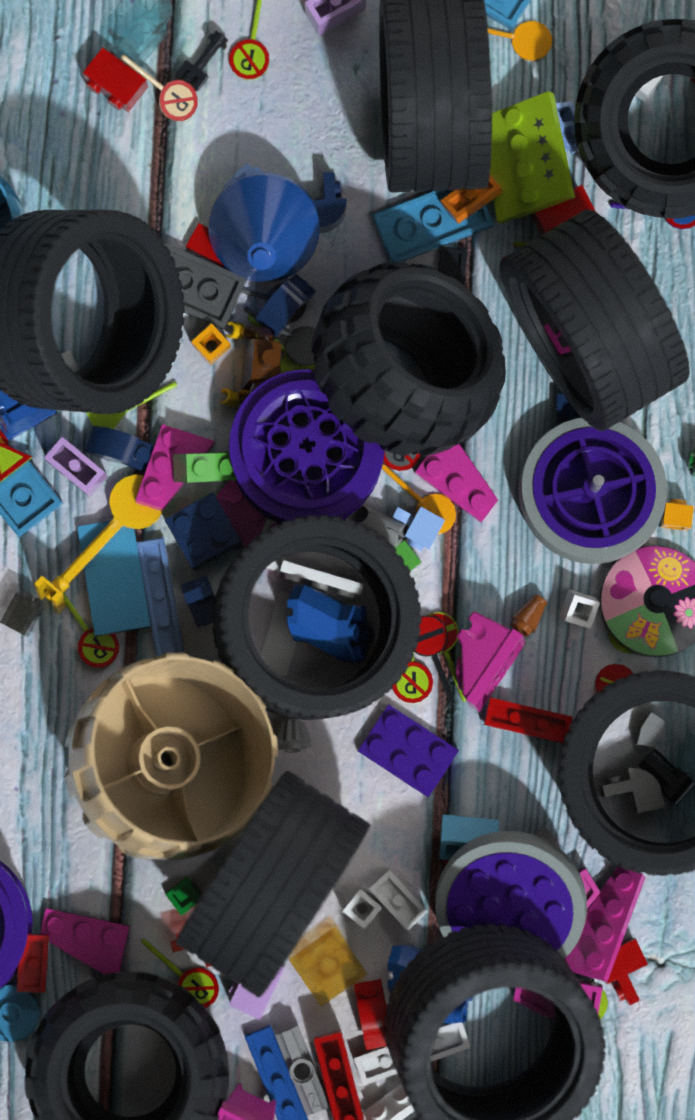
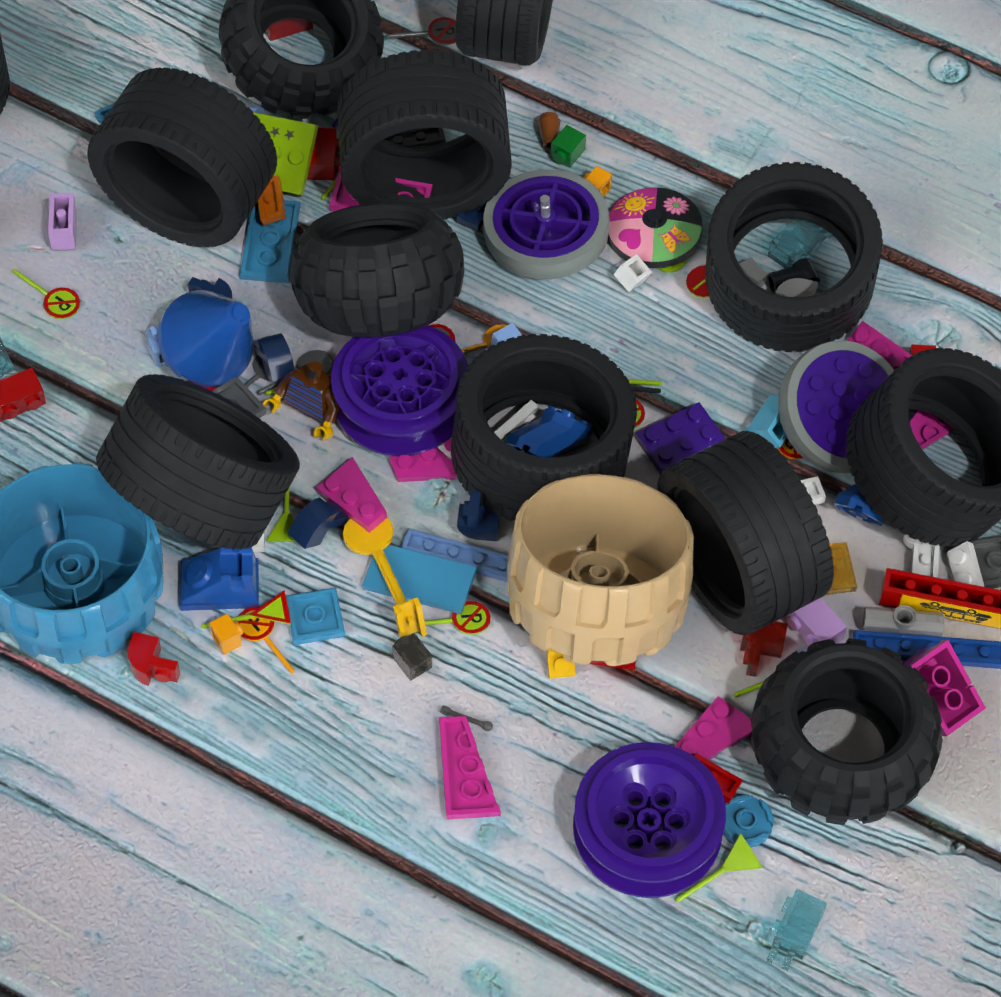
camera: 60 degrees left, 25 degrees down
(75, 467) = (314, 558): lavender brick -> none
(177, 98) = (57, 359): piece -> none
(184, 895) = (713, 646): green tile -> none
(203, 467) = (371, 464): bright green brick -> none
(203, 531) = (422, 495): dark blue brick -> none
(207, 336) = (275, 418): light orange plate -> none
(217, 41) = (34, 314): black hinge -> none
(372, 1013) = (885, 545): red brick -> none
(459, 481) = (480, 312): dark pink wing -> none
(485, 658) = (637, 346): dark pink piece -> none
(527, 720) = (701, 347): red plate -> none
(529, 615) = (619, 311): dark orange cone -> none

